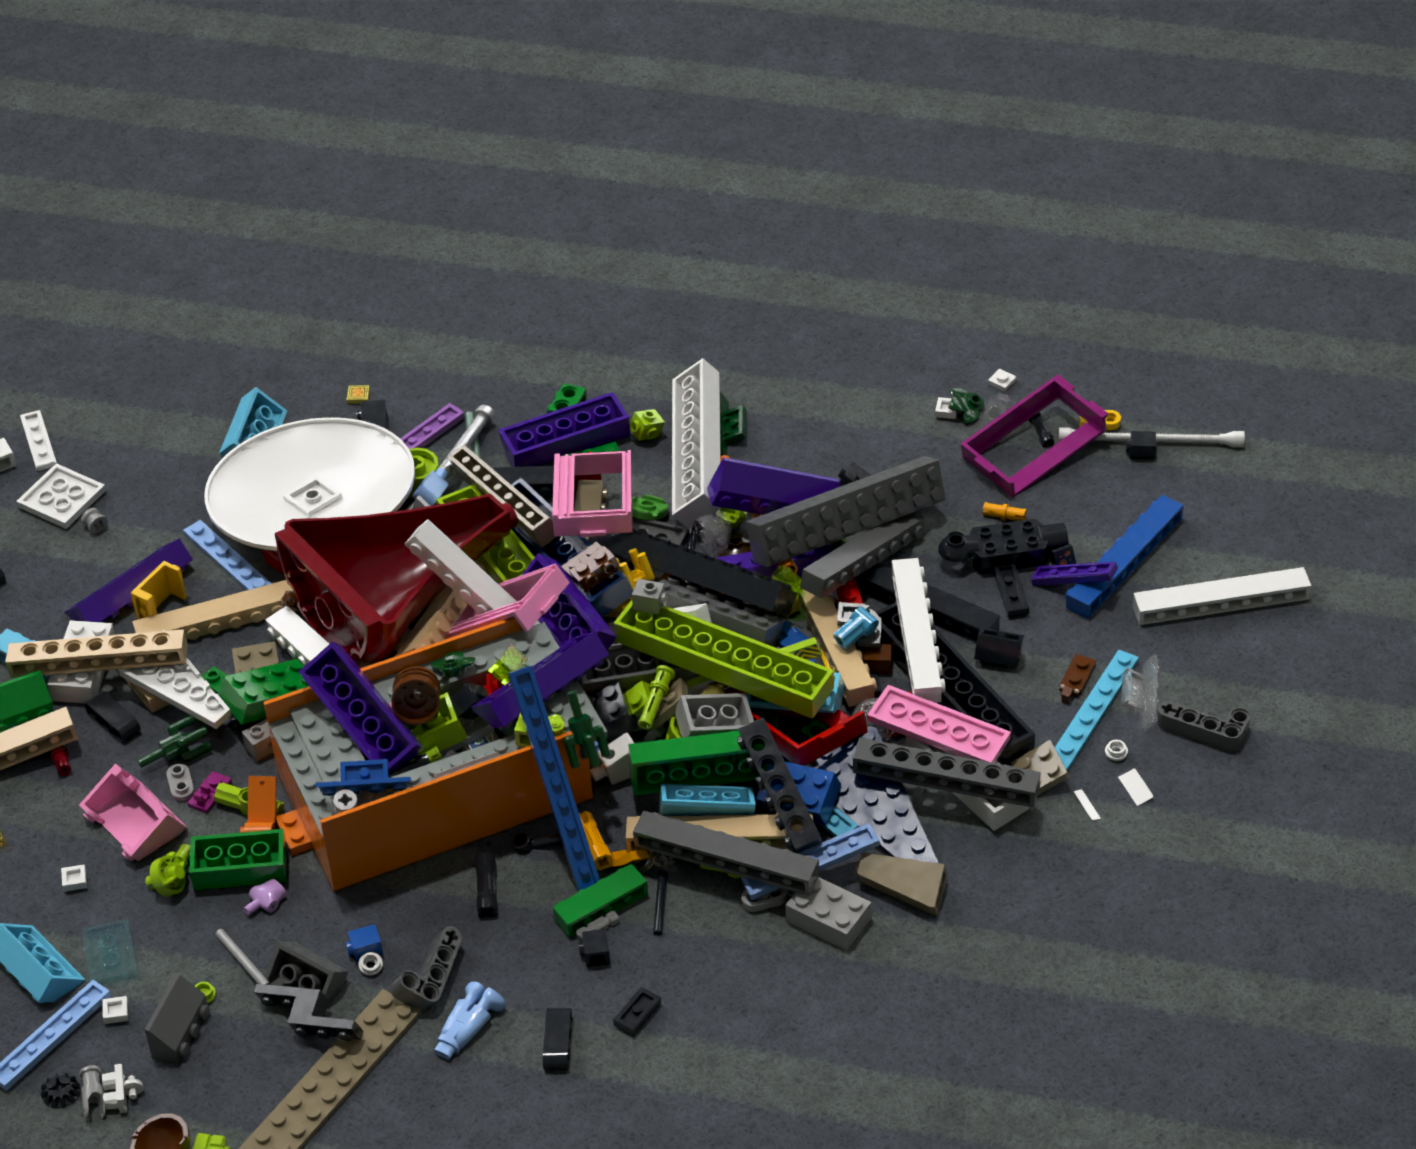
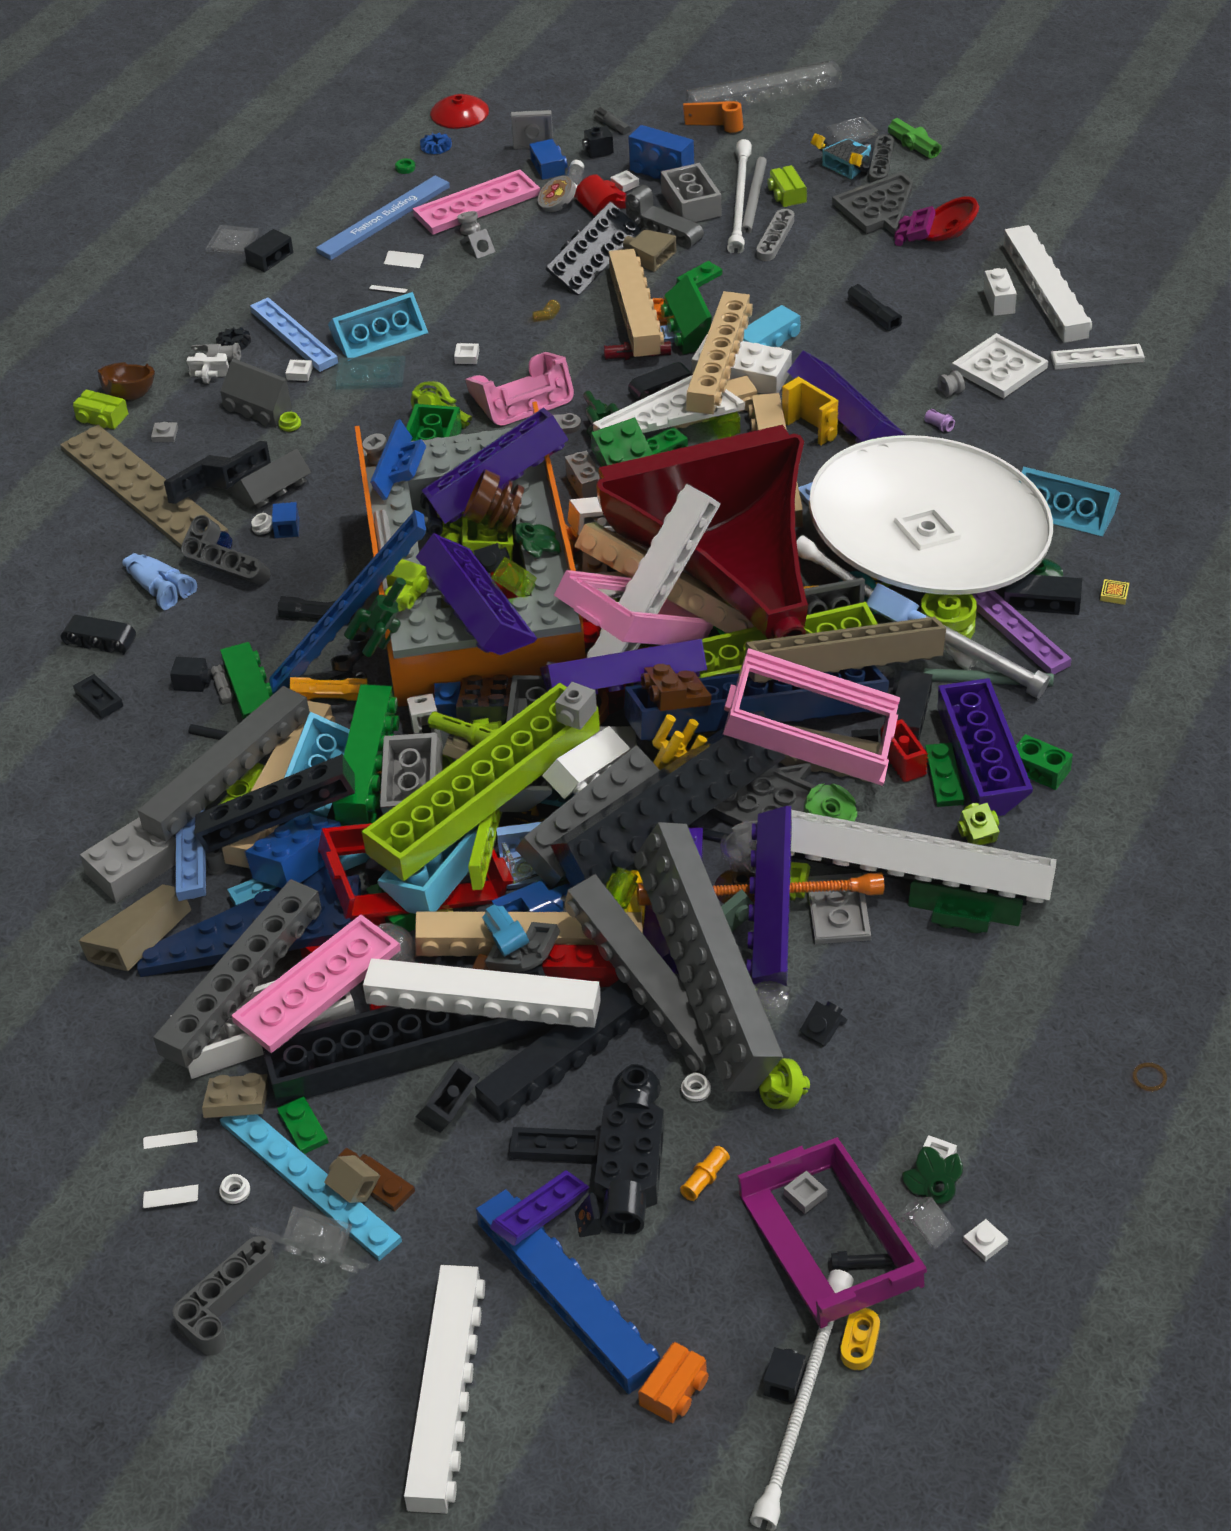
camera: 105 degrees right, 0 degrees up
(150, 518) = (944, 422): none -> lavender pin
(231, 1097) = (164, 432): none -> light grey plate
(241, 957) = (315, 446): light grey bar -> none
(842, 320) = (1153, 1066): none -> clear orange piece
(933, 531) = (695, 1080): none -> white plate
(1002, 461) = (805, 1192): none -> light grey plate
(1049, 728) = (302, 1125): none -> green plate
(1089, 677) = (351, 1178): none -> dark tan brick
(1172, 488) = (673, 1383): none -> orange brick

